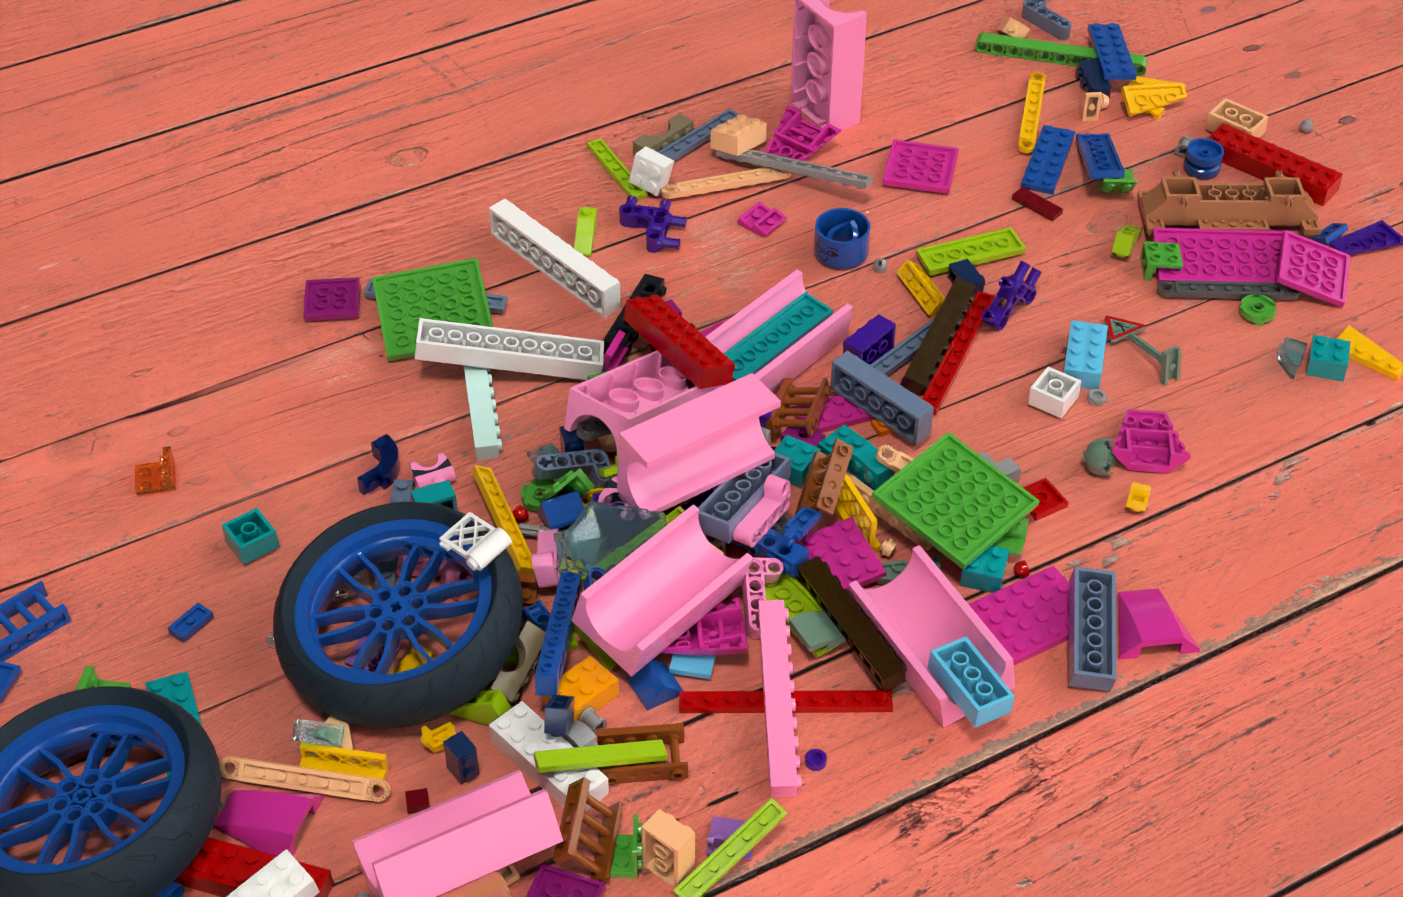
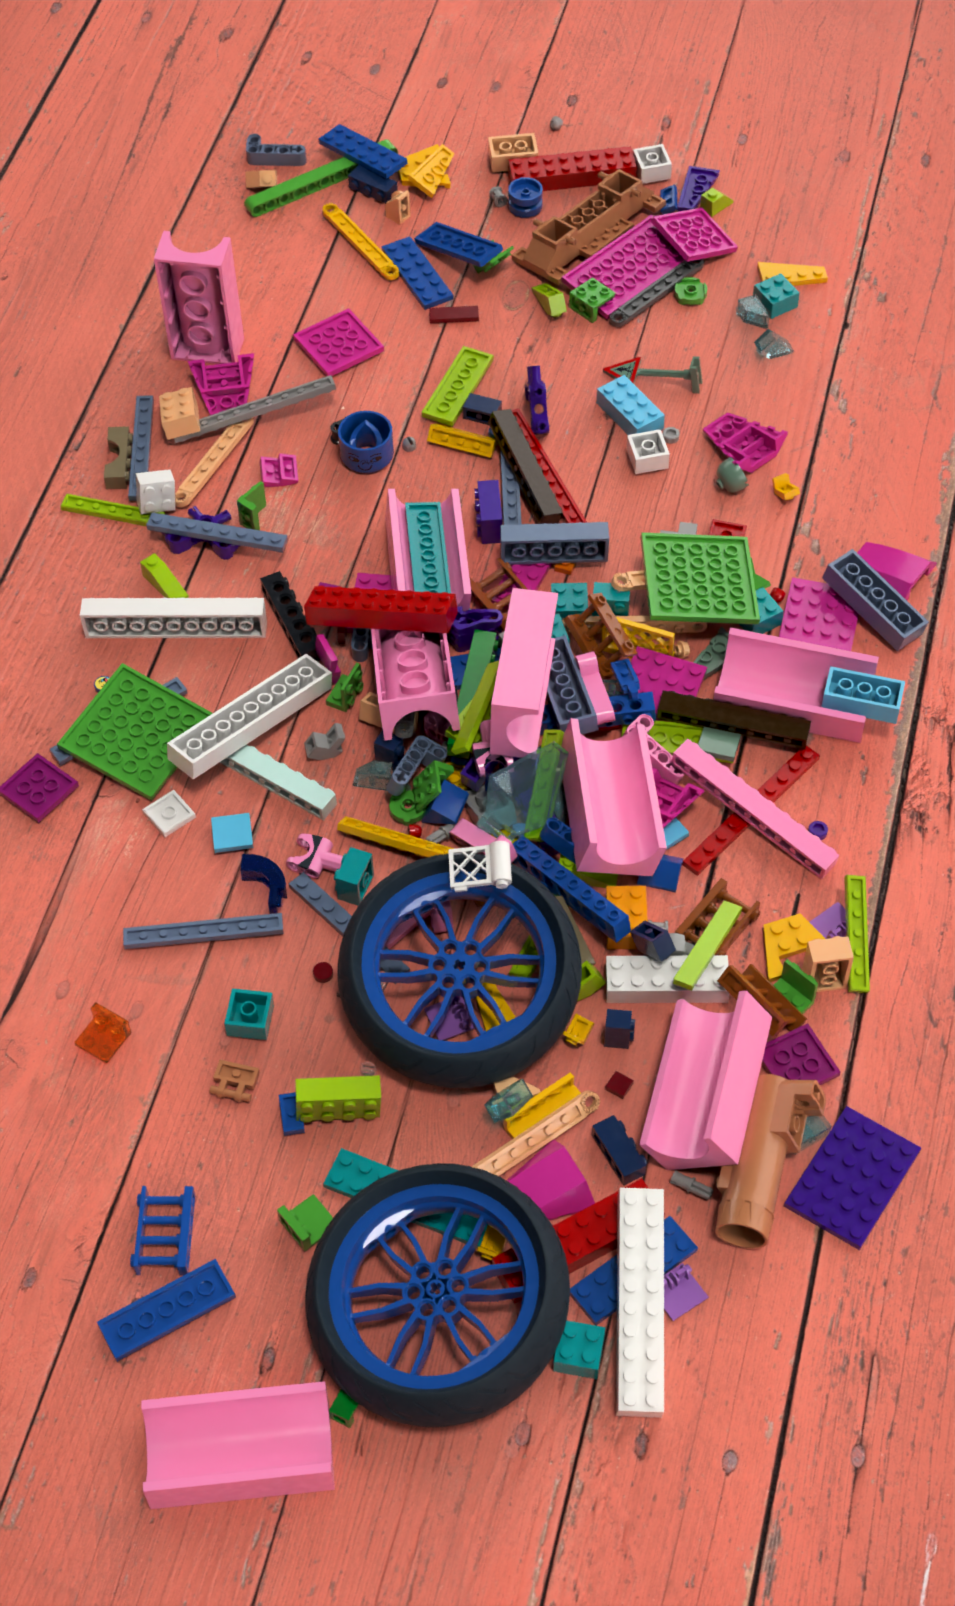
camera: 45 degrees left, 10 degrees up
(194, 570) = (237, 1075): none -> nougat plate
(221, 633) = (338, 1098): none -> lime brick
(303, 464) = (203, 931): none -> sand blue plate
(340, 854) = (619, 1149): none -> dark blue brick
(387, 377) = (169, 813): none -> white tile
(405, 419) = (232, 832): none -> medium azure tile
(539, 411) = (327, 745): none -> light grey brick
(656, 225) = (217, 532): none -> sand blue plate
(687, 810) = (785, 939): none -> yellow wing
(706, 224) = (250, 505): none -> bright green bracket
(1275, 391) = (772, 345): none -> clear light blue slope
(1347, 198) = (652, 163): none -> white brick
(1371, 258) = (714, 201): none -> lime slope

